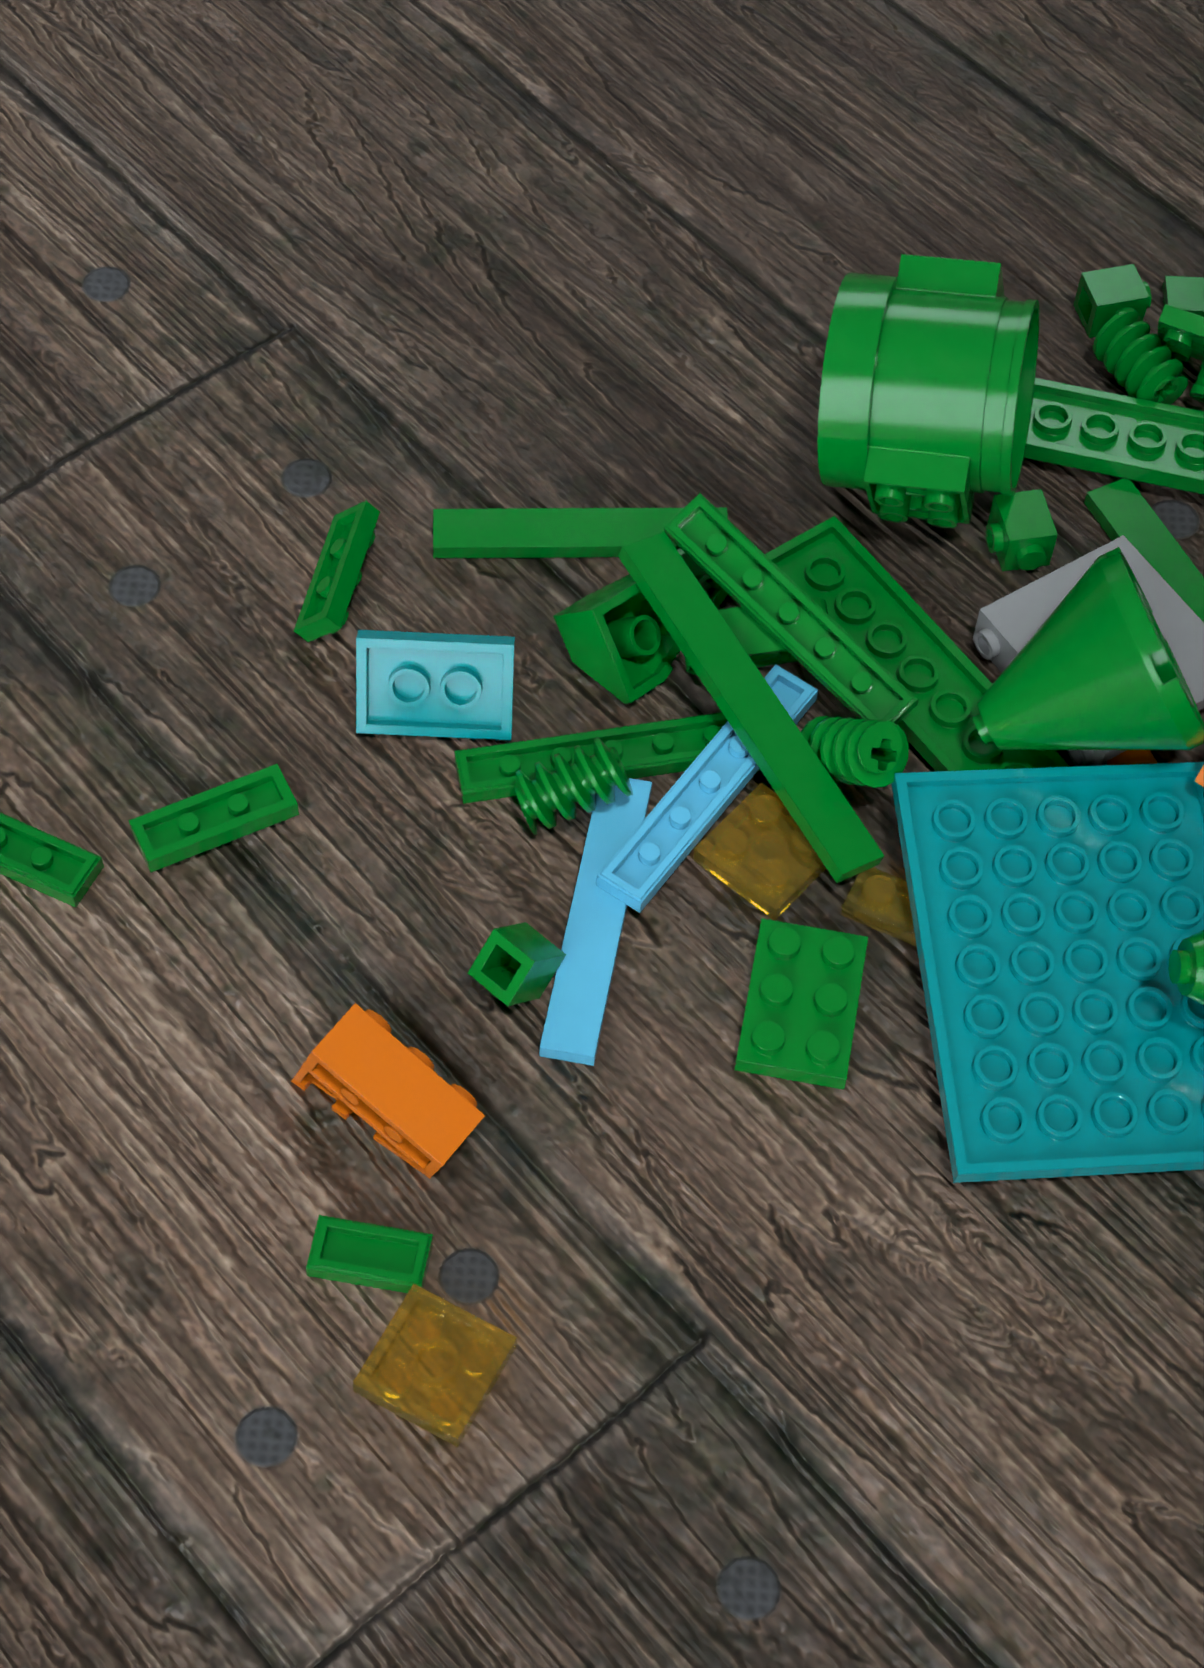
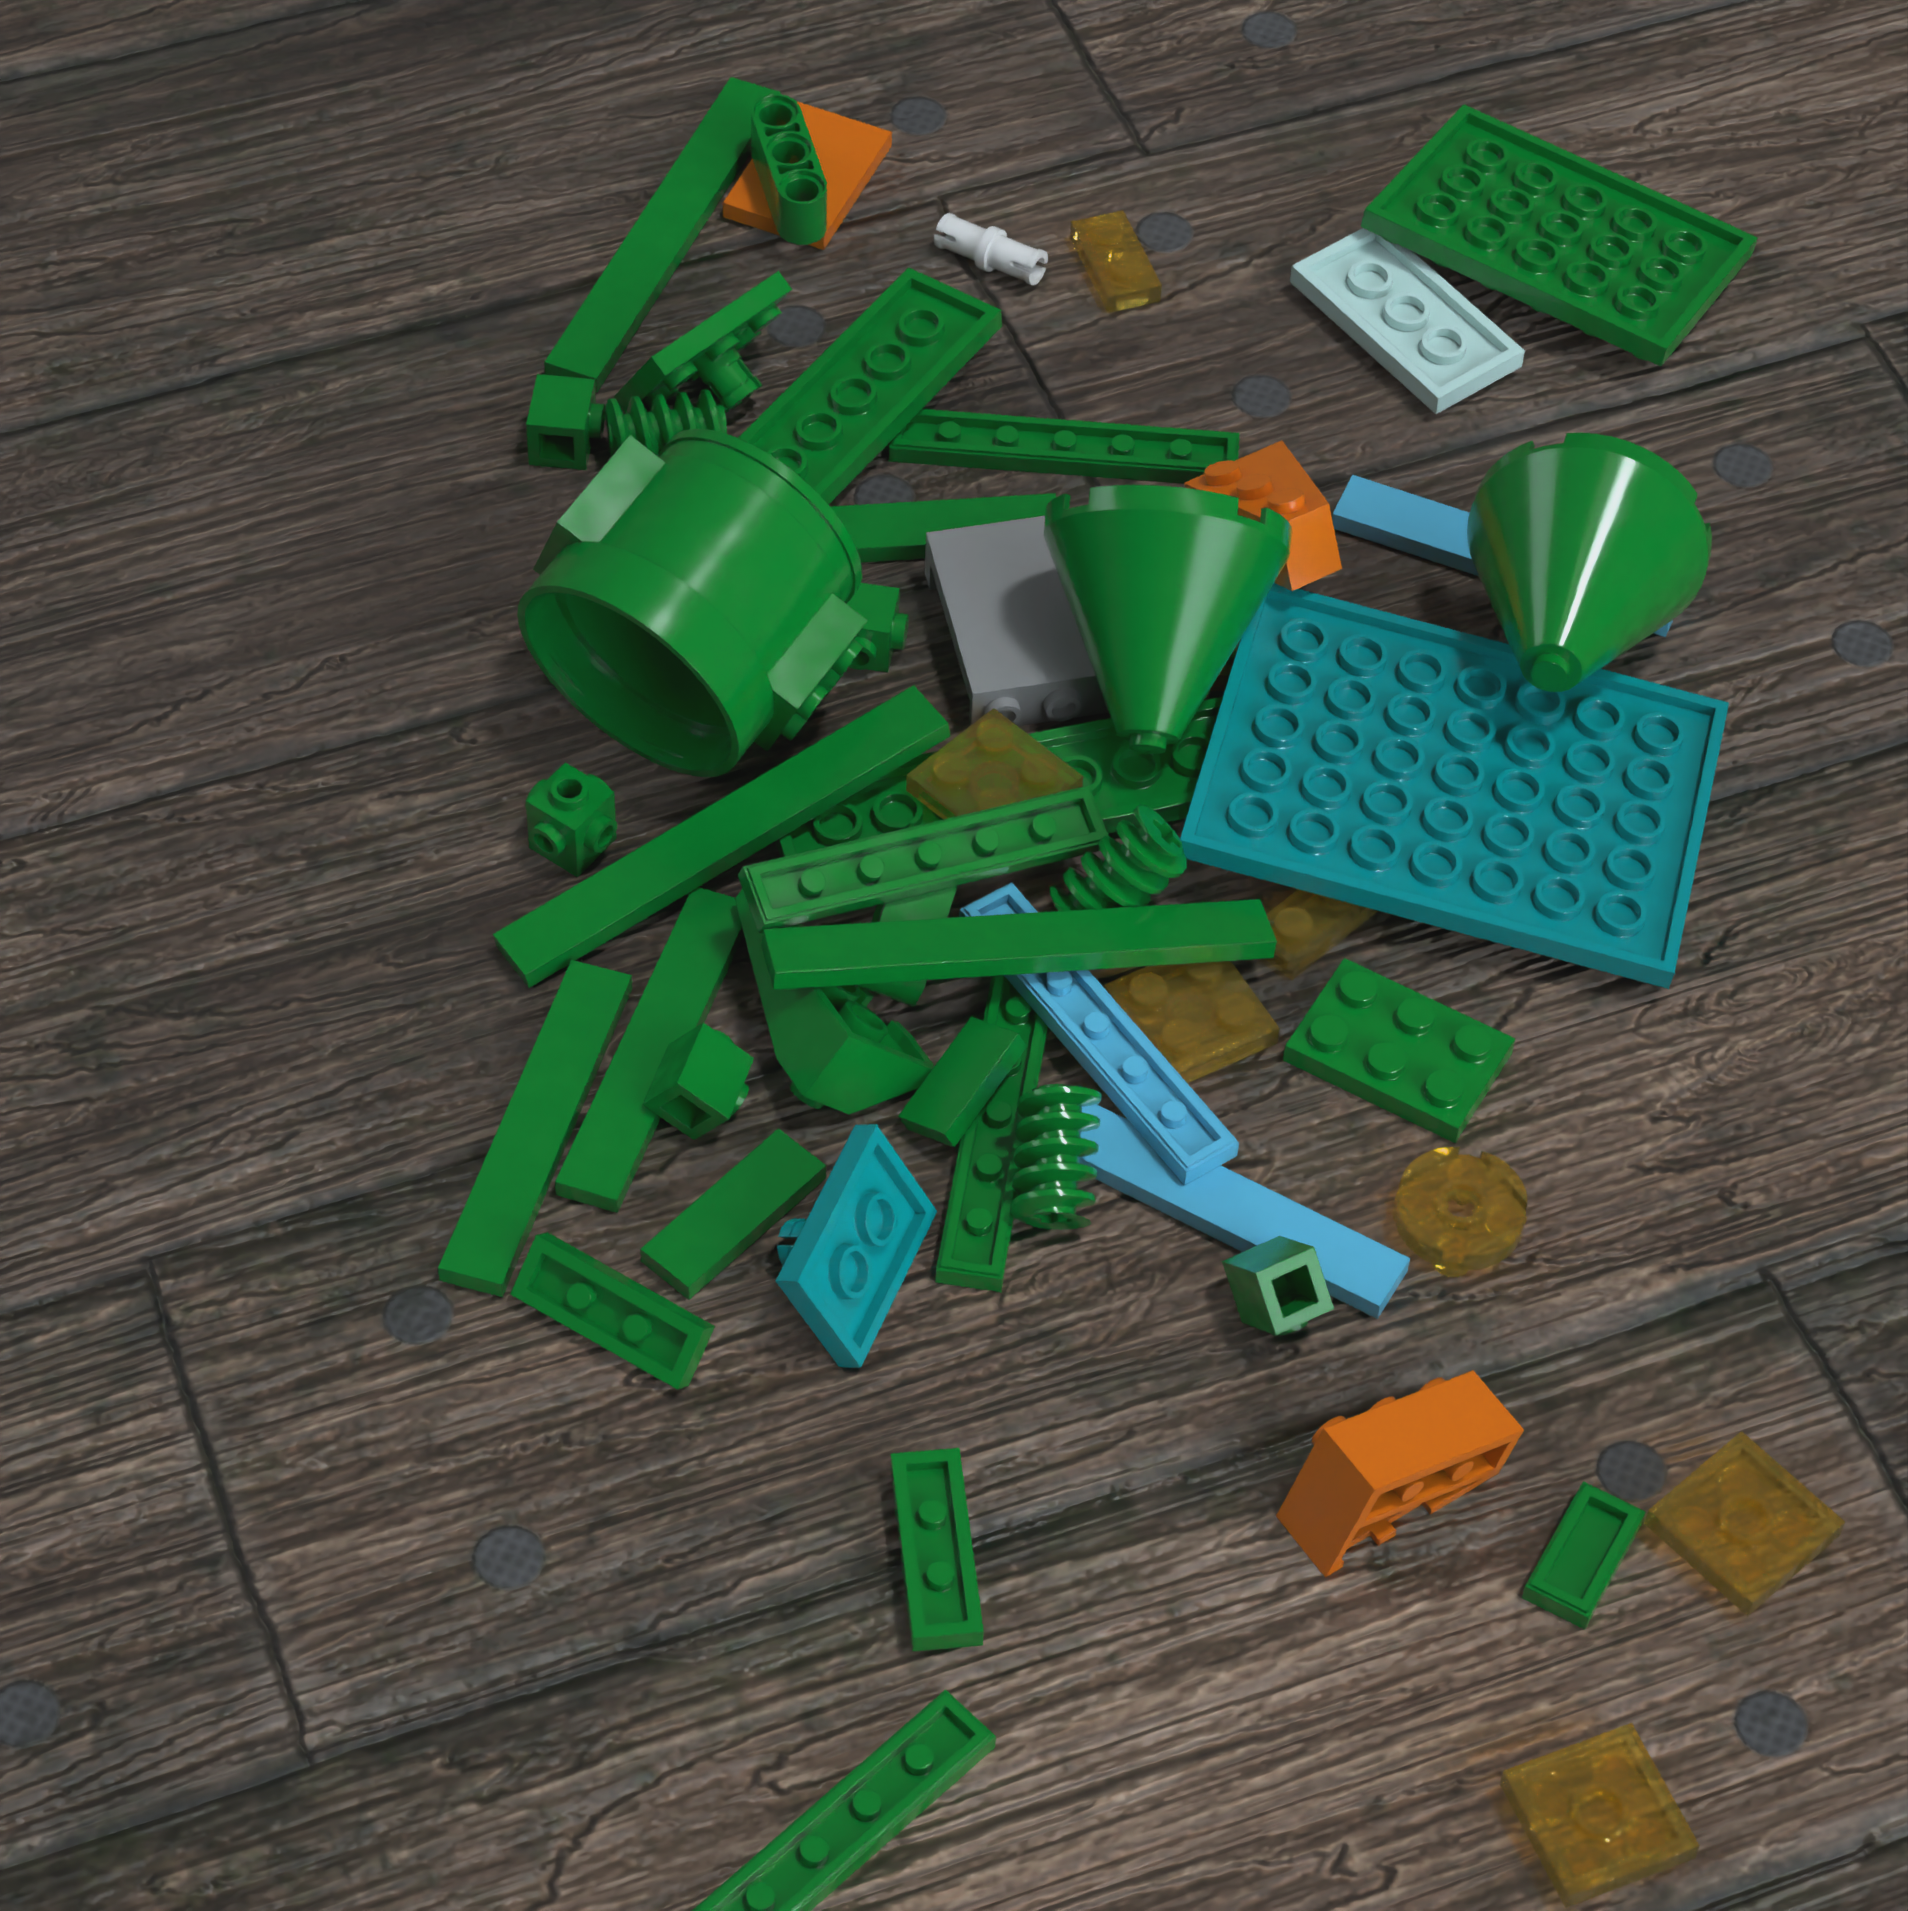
camera: 70 degrees left, 5 degrees down
(127, 1316) = (1599, 1815): none -> clear yellow plate
(433, 609) = (733, 1214): none -> green tile
(485, 486) = (535, 1129): none -> green tile
(548, 558) = (699, 1081): none -> green brick
(622, 715) = (962, 1081): none -> green tile
(658, 1112) = (1453, 1241): none -> clear yellow plate
(743, 417) = (571, 818): none -> green brick
(779, 507) = (721, 836): none -> green tile
(914, 645) = (989, 768): none -> clear yellow plate

